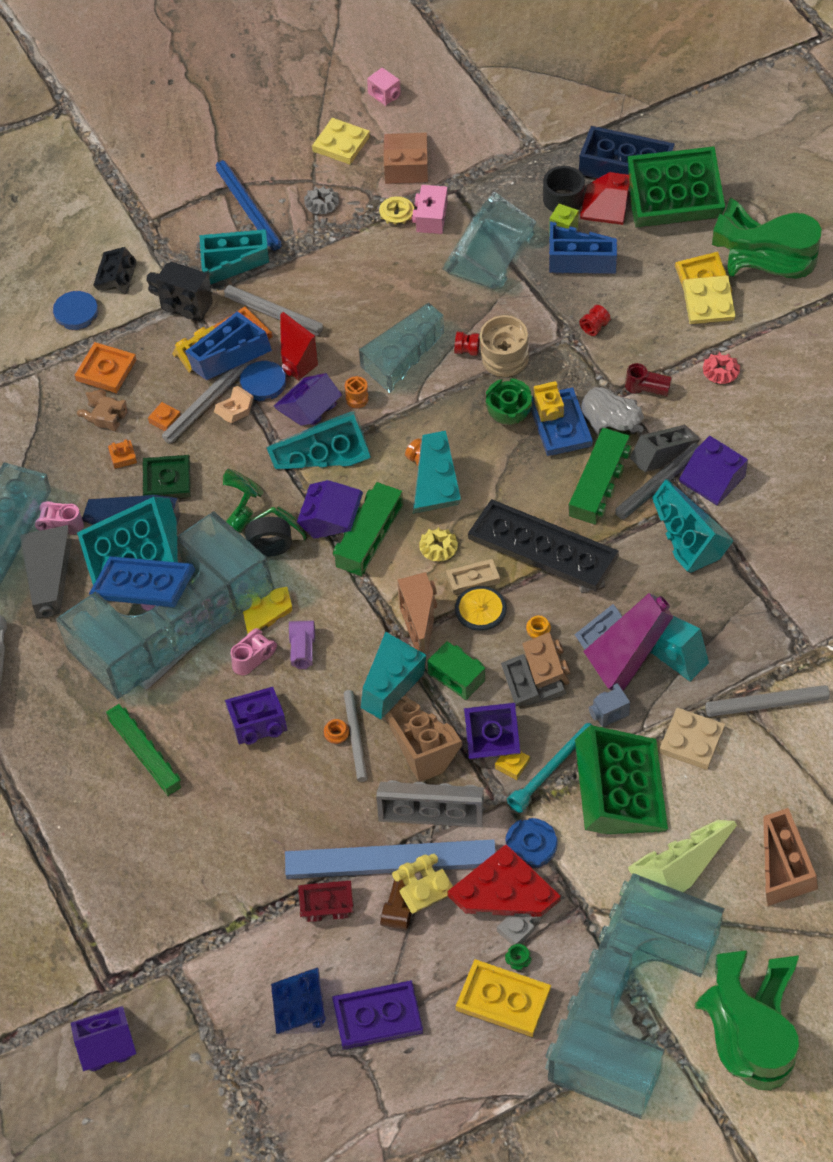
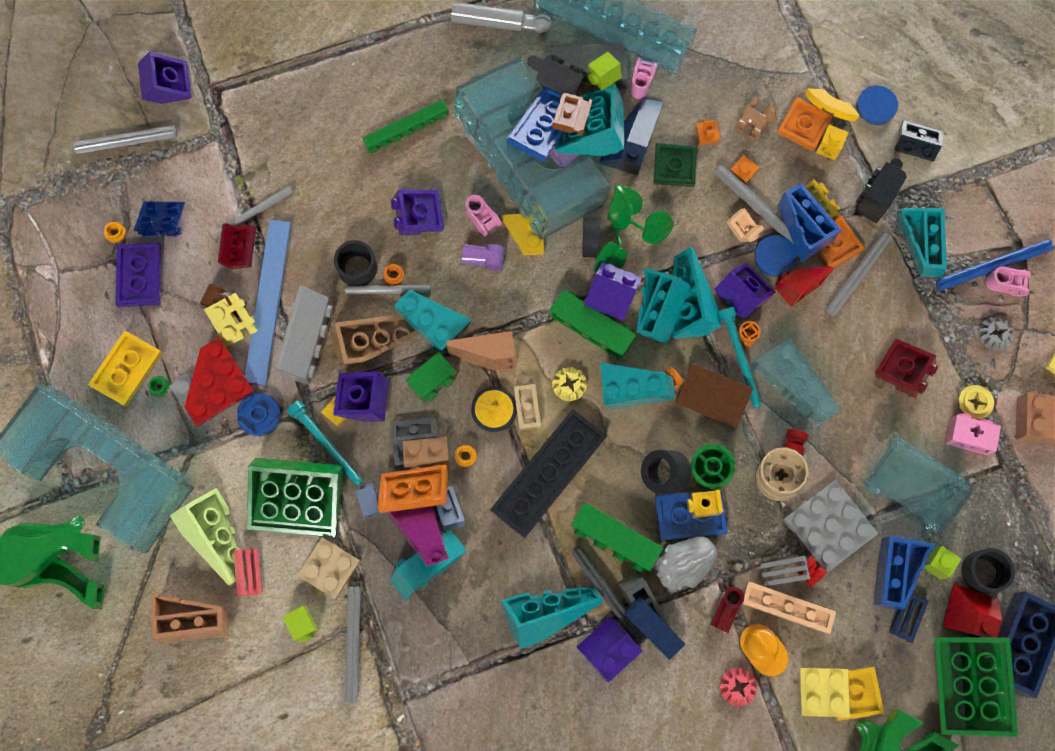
camera: 95 degrees right, 20 degrees up
(65, 539) = (604, 71): none -> lime brick
(75, 579) = (557, 75): none -> black hinge
(80, 345) = (838, 108): none -> yellow tile
(127, 338) = (832, 142): none -> yellow brick
(131, 551) = (572, 114): none -> plate
(192, 1073) = (124, 139): none -> light grey axle
(265, 192) = (1012, 281): none -> bright pink piece
(274, 897) = (259, 208): none -> light grey bar
(321, 1047) = (110, 228): none -> light orange plate
(330, 751) = (348, 250): none -> black piece
(337, 464) = (661, 305): none -> teal wedge
(342, 406) = (728, 317): none -> teal piece
(371, 261) = (907, 368): none -> dark red plate
(428, 410) = (714, 395): none -> reddish brown tile
(504, 438) = (679, 471): none -> black piece
(547, 311) = (830, 526): none -> light grey plate
(589, 655) = (413, 488): none -> orange plate
(596, 318) = (767, 574): none -> light grey tile
(627, 252) = (900, 613): none -> dark blue tile
(634, 333) = (788, 607): none -> light nougat plate
(679, 353) = (764, 650): none -> light orange piece
(683, 432) = (654, 628): none -> dark blue tile
(716, 813) = (251, 572): none -> coral tile
(759, 749) = (301, 624): none -> lime brick

